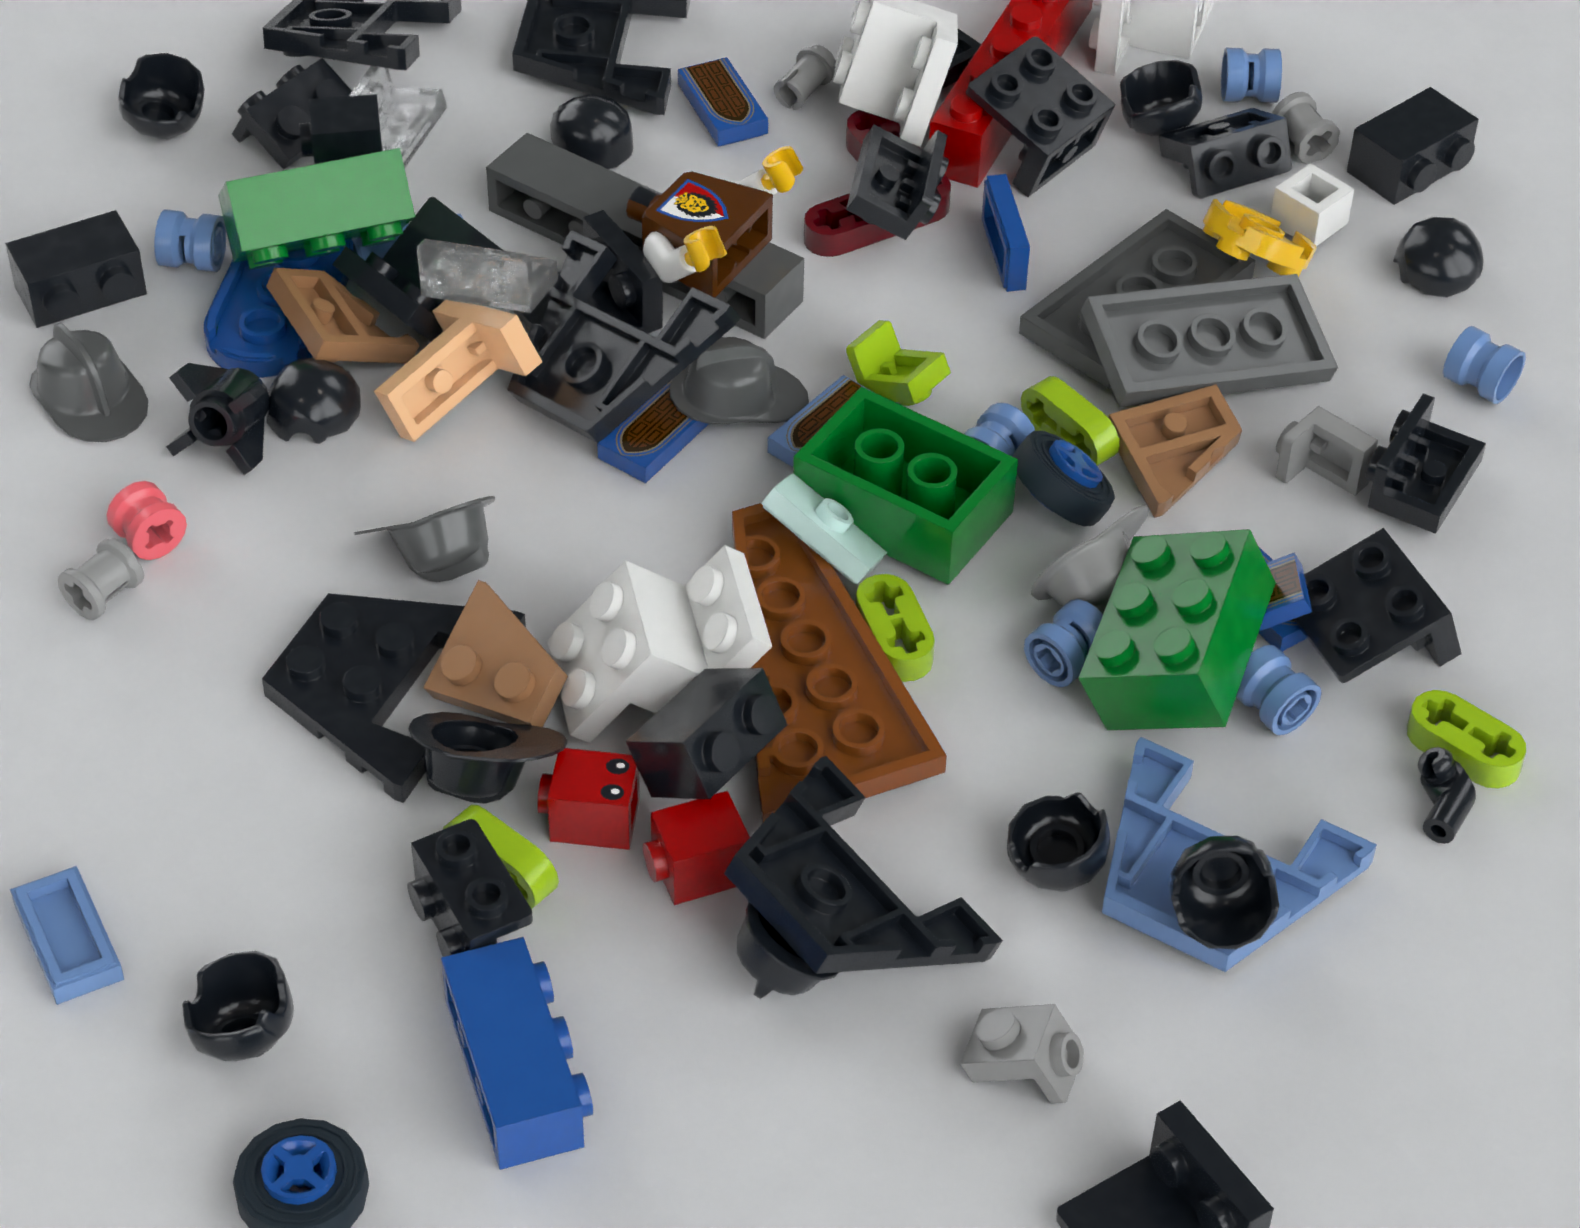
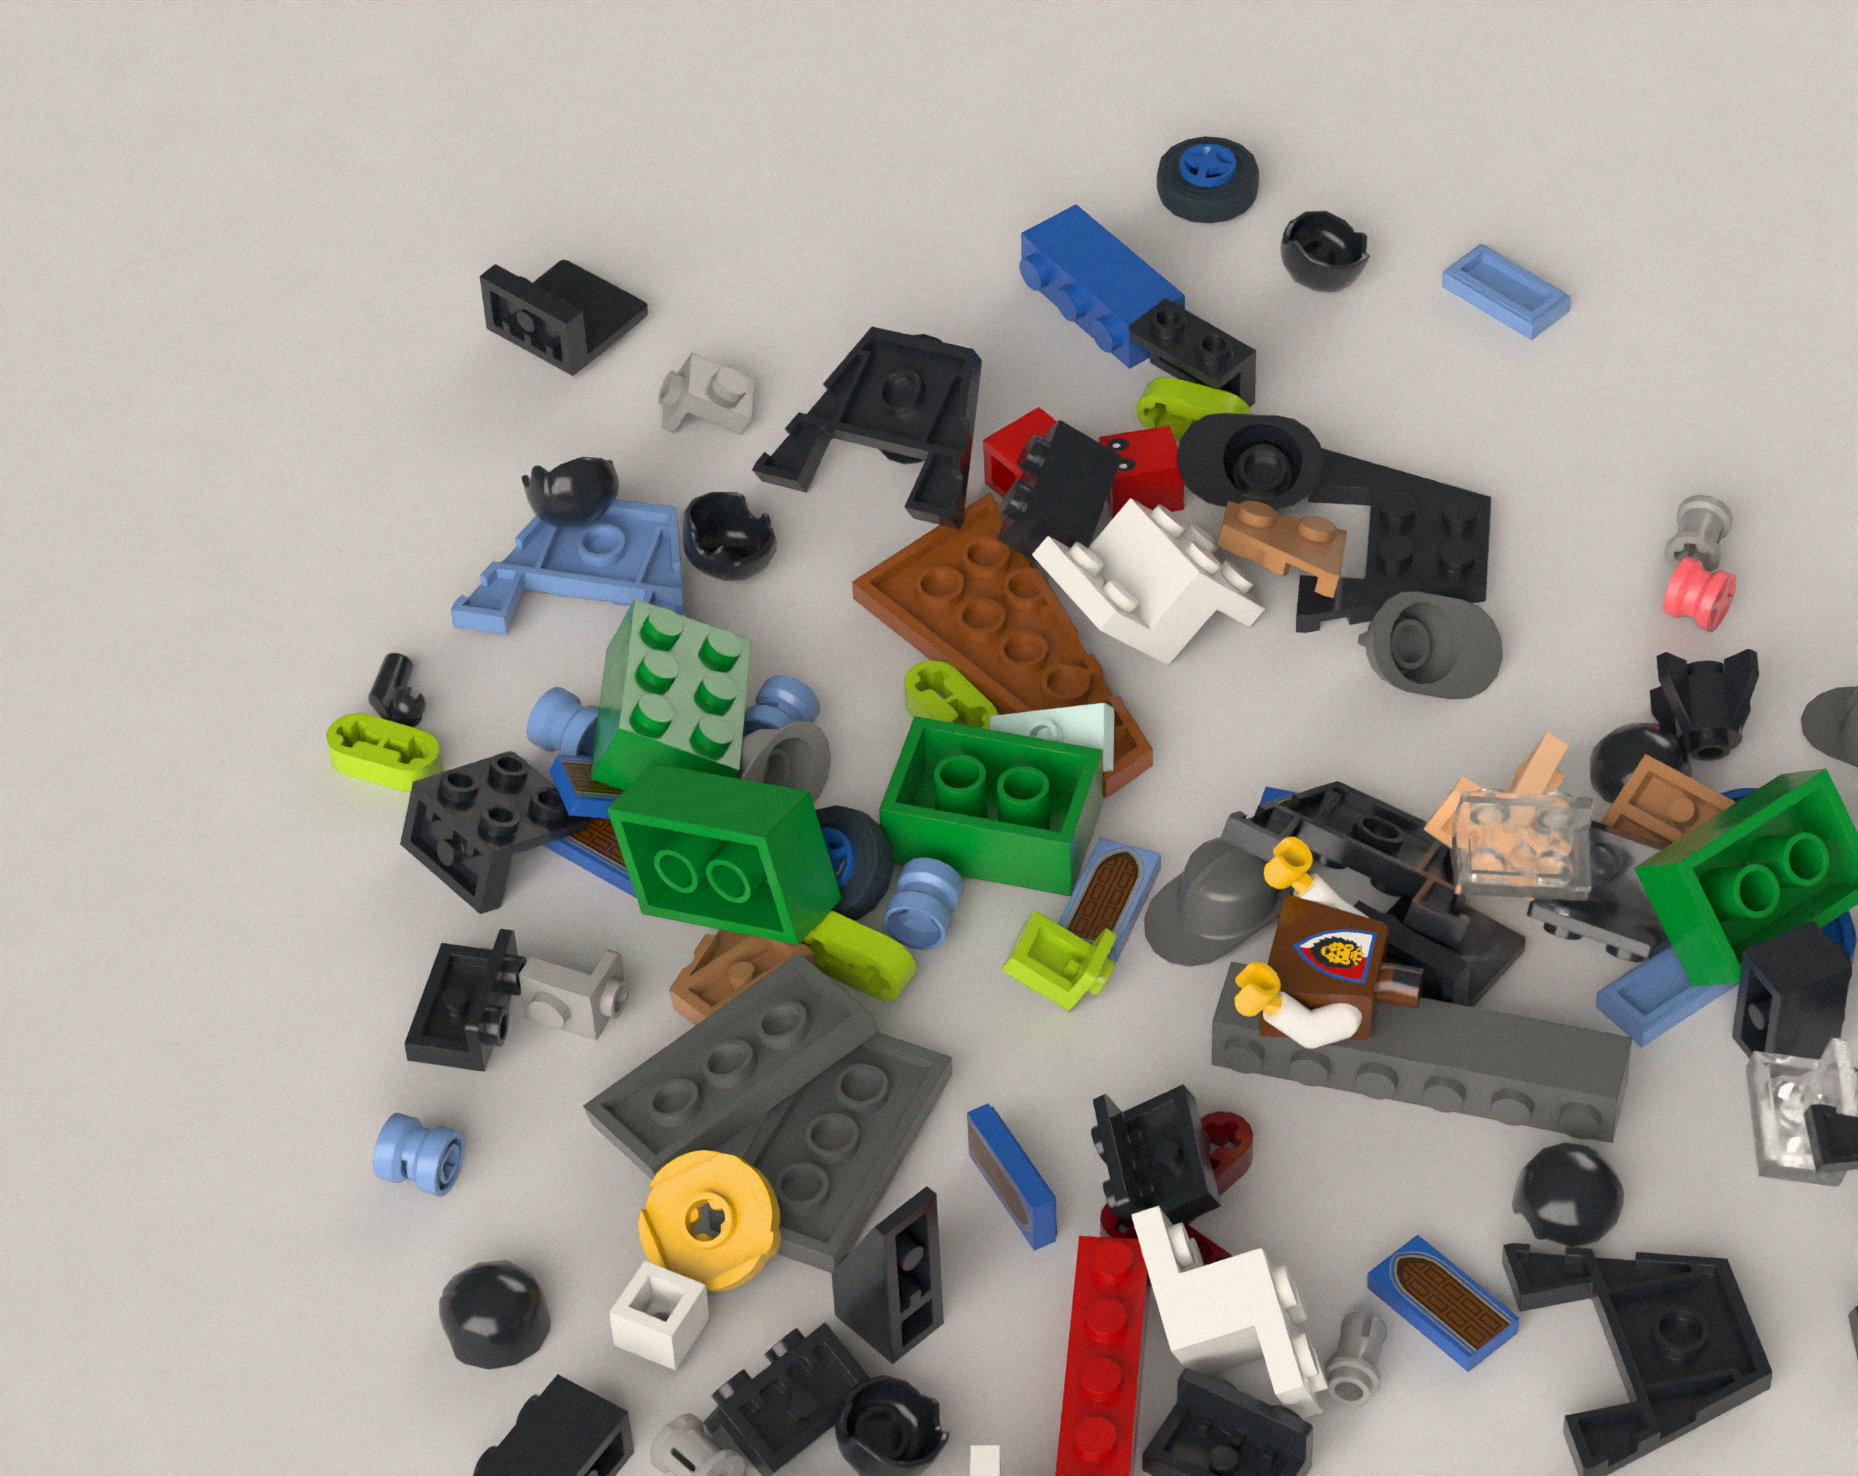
camera: 165 degrees right, 0 degrees up
(1044, 107) = (1021, 1307): black bracket -> none
(1133, 139) = (893, 1281): none -> black slope
(1170, 447) = (725, 853): none -> green brick

